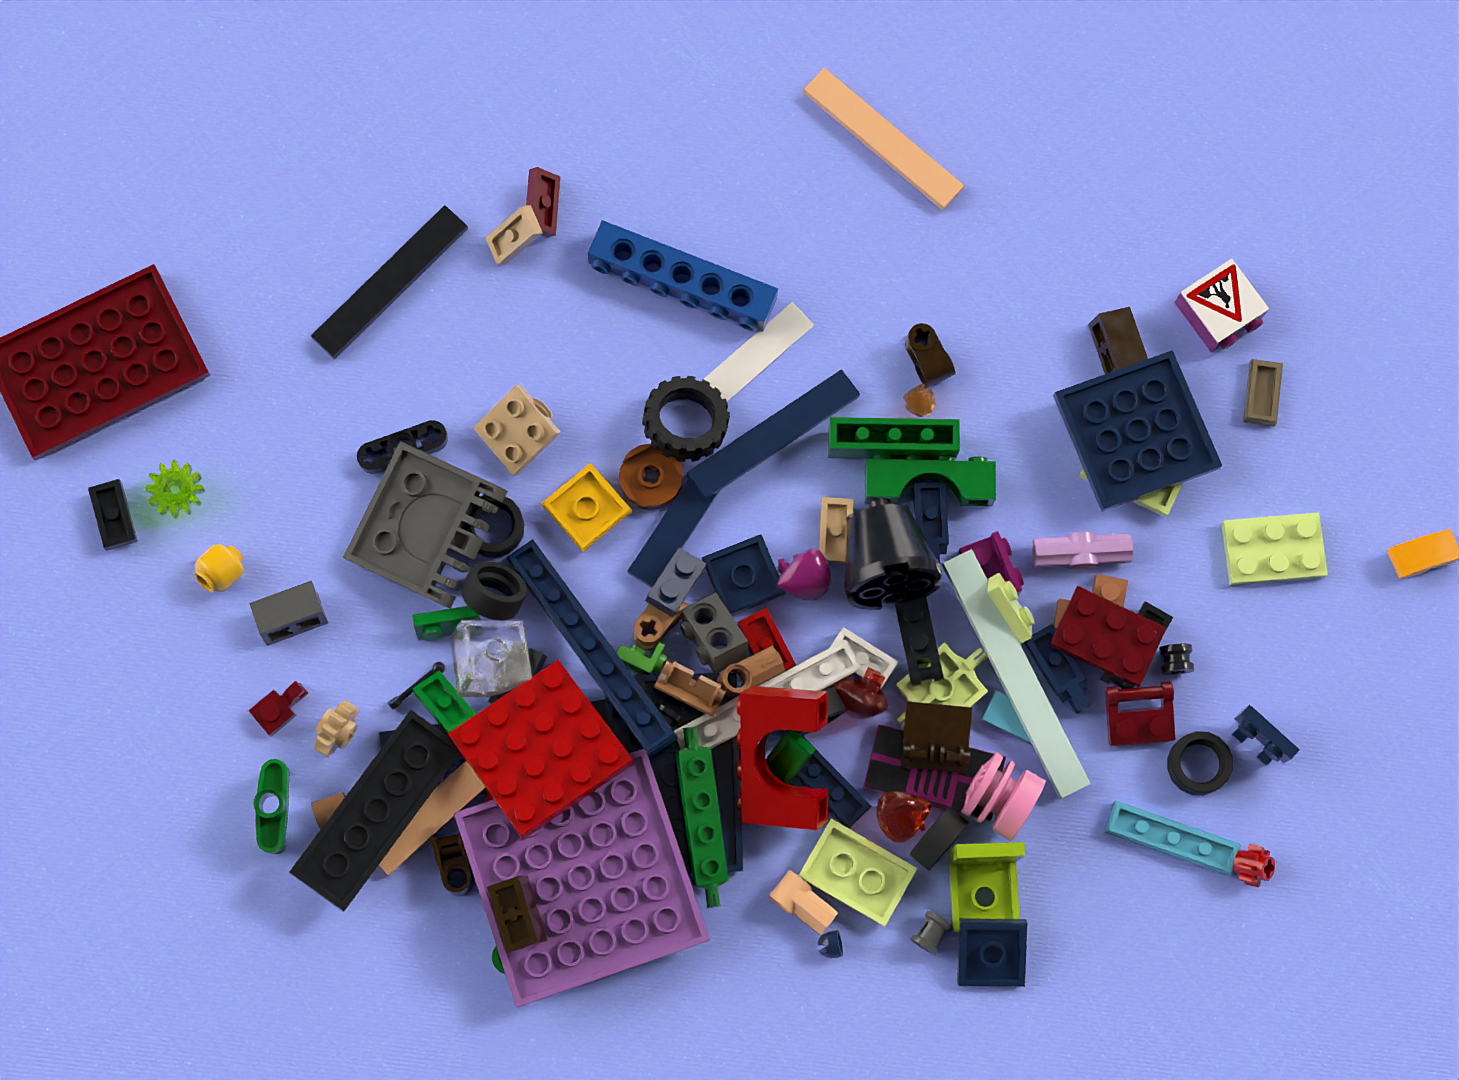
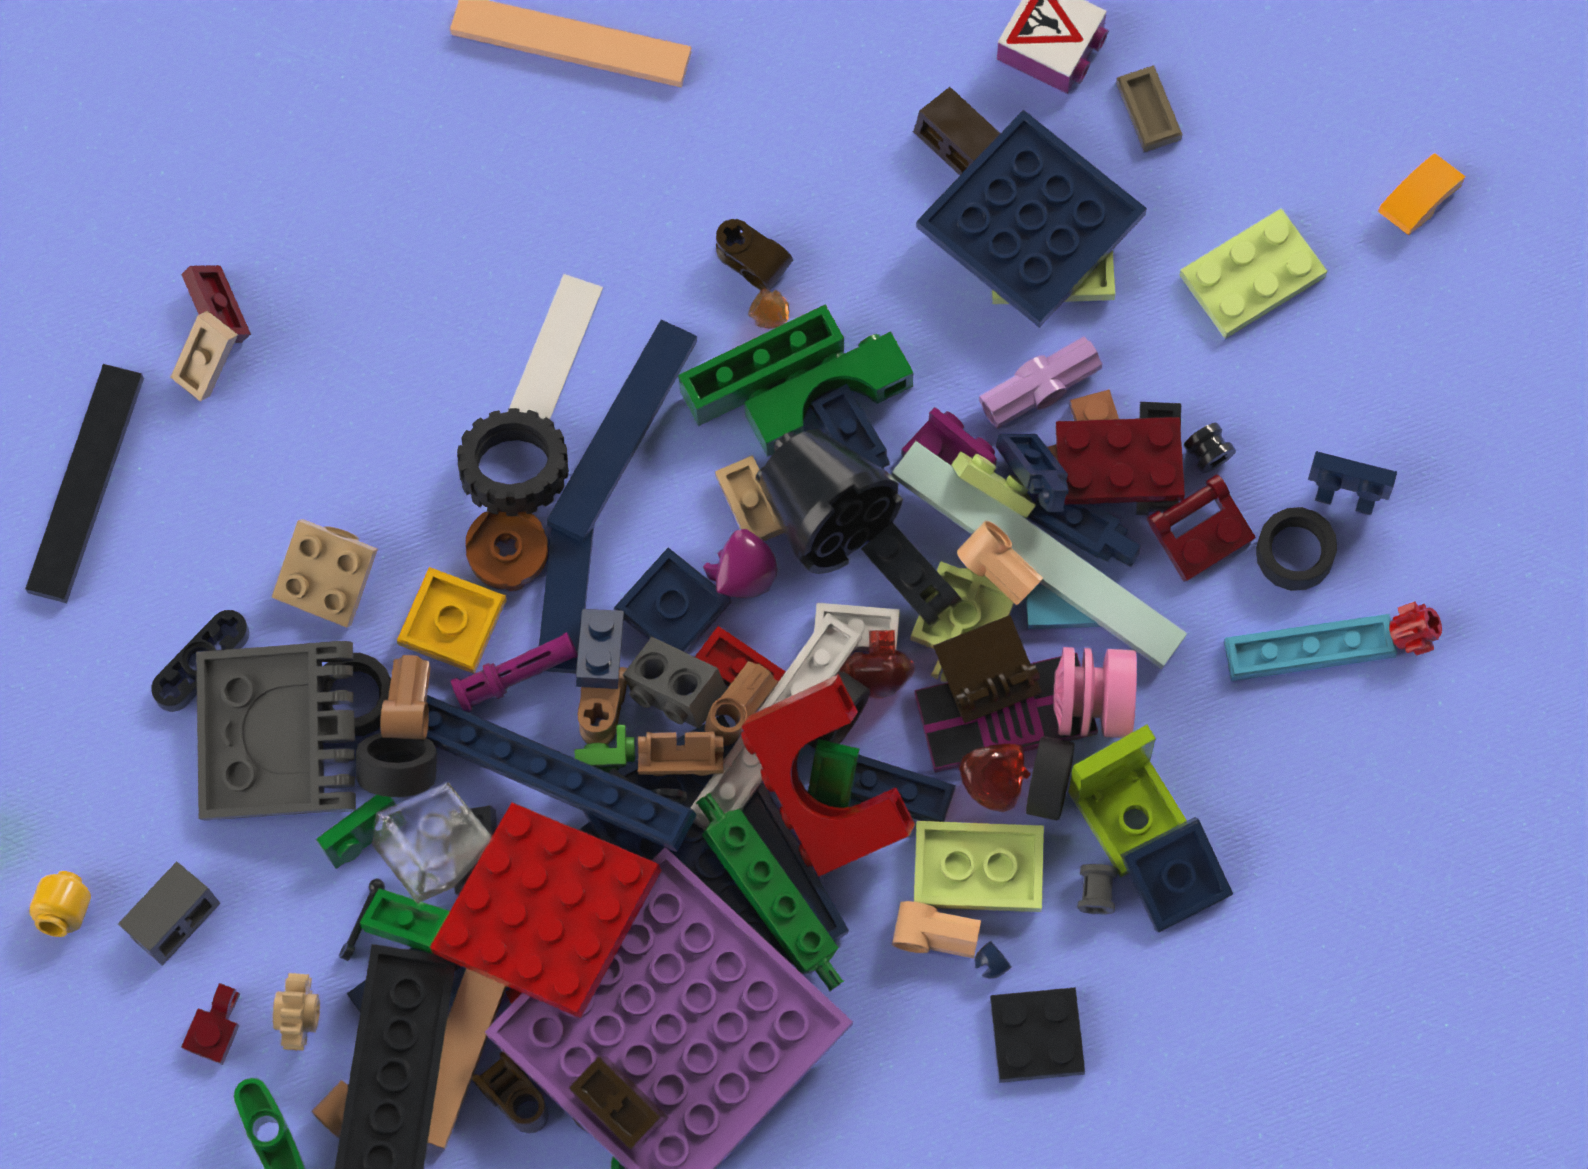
camera: 20 degrees left, 5 degrees down
(520, 556) = (406, 710): none -> medium nougat piece
(649, 567) = (494, 679): none -> magenta pin
(731, 284) = (404, 294): blue brick -> none
(835, 1013) = (1037, 1035): none -> black plate
(982, 658) = (991, 555): none -> light nougat piece
(1045, 612) = (1035, 468): none -> dark blue hinge

